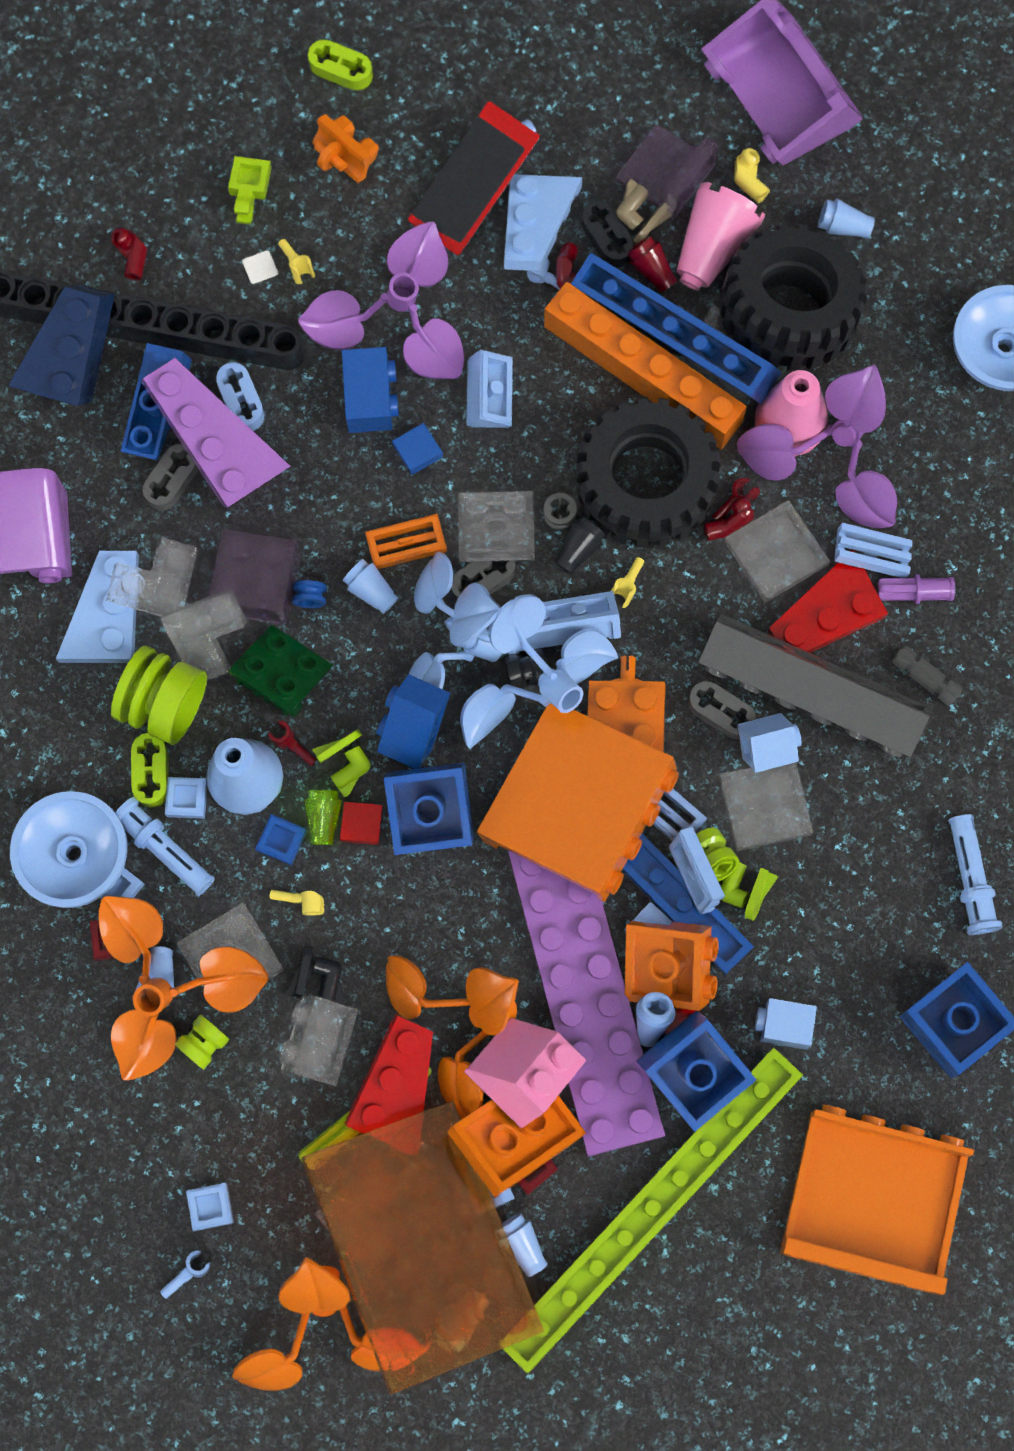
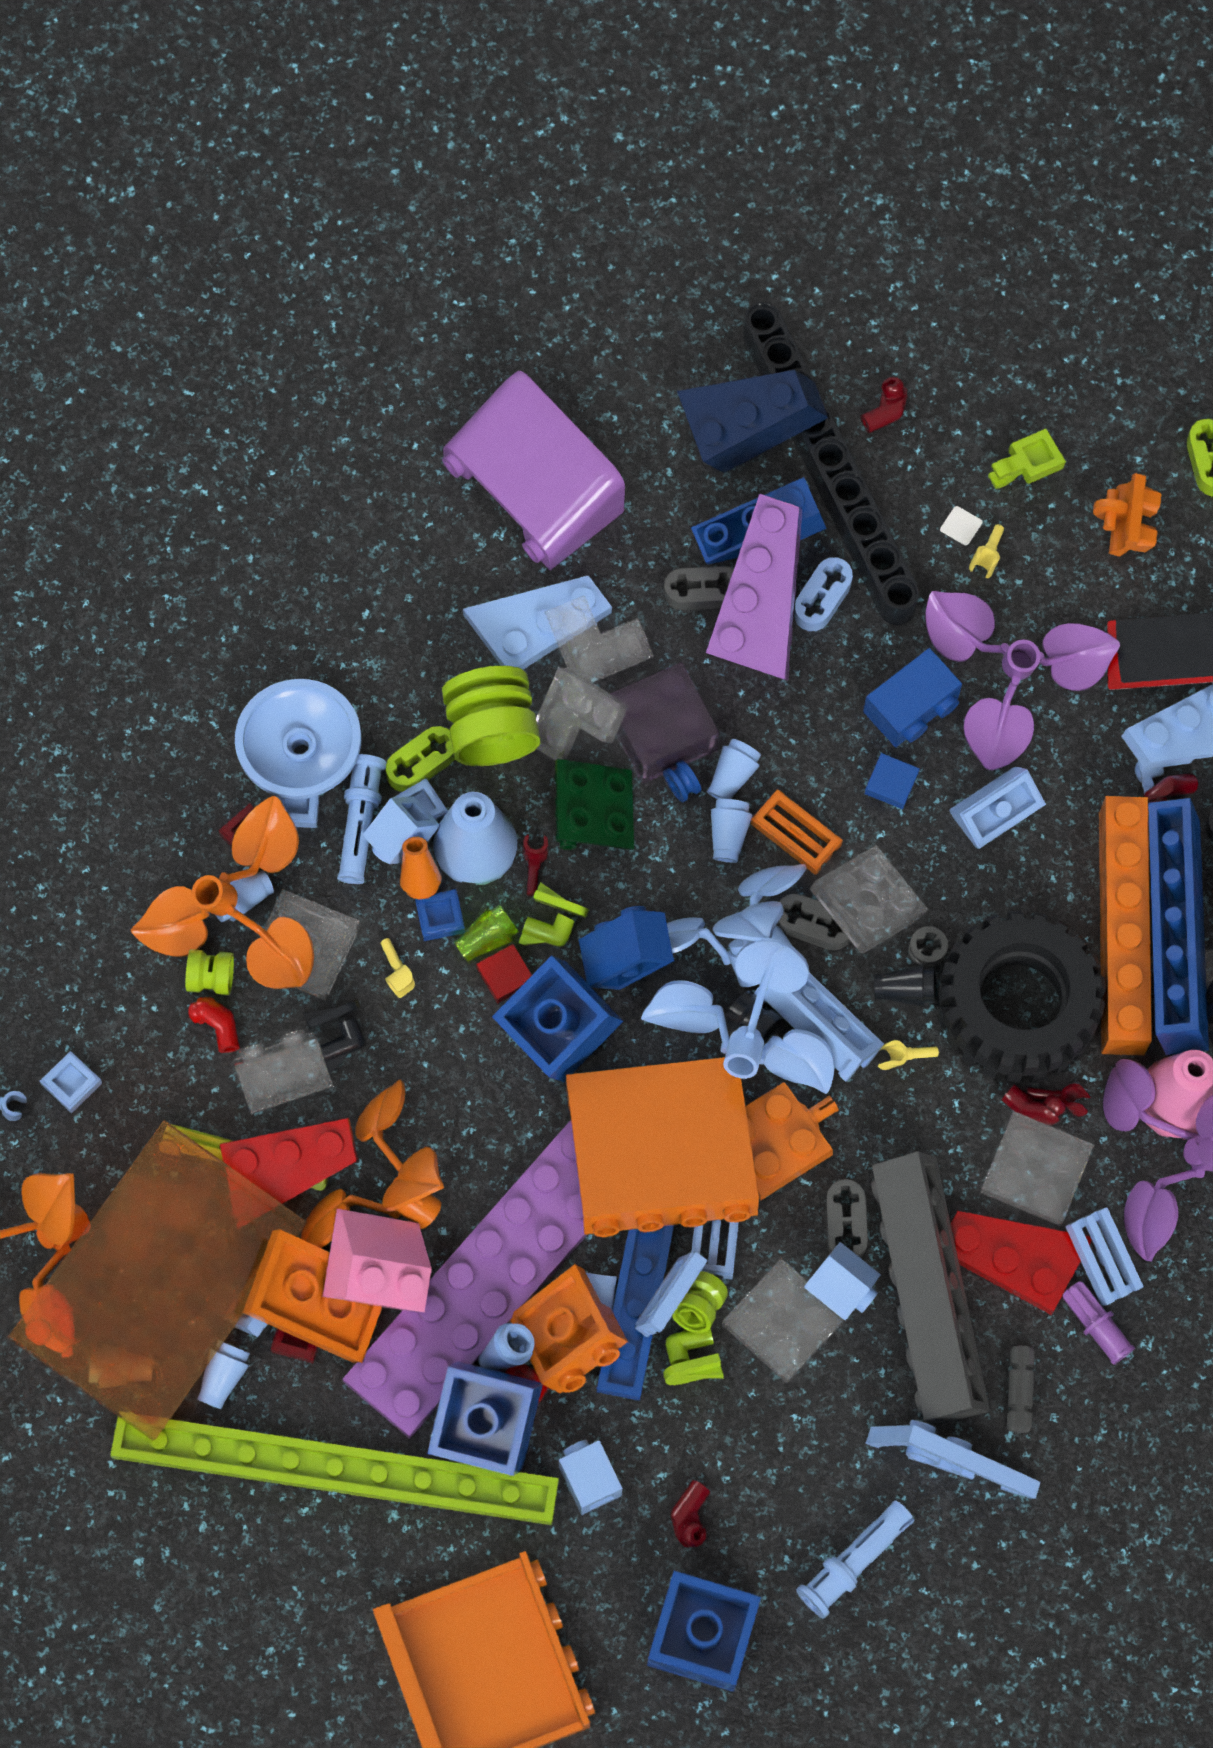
camera: 50 degrees right, 5 degrees down
(198, 823) = (396, 823): none -> light blue brick
(240, 831) = (419, 872): none -> orange cone
(240, 1059) = (220, 1018): none -> red arm
(327, 551) = (733, 769): none -> light blue cone
(861, 975) = (686, 1517): none -> dark red arm
(945, 756) = (951, 1455): none -> light blue wing

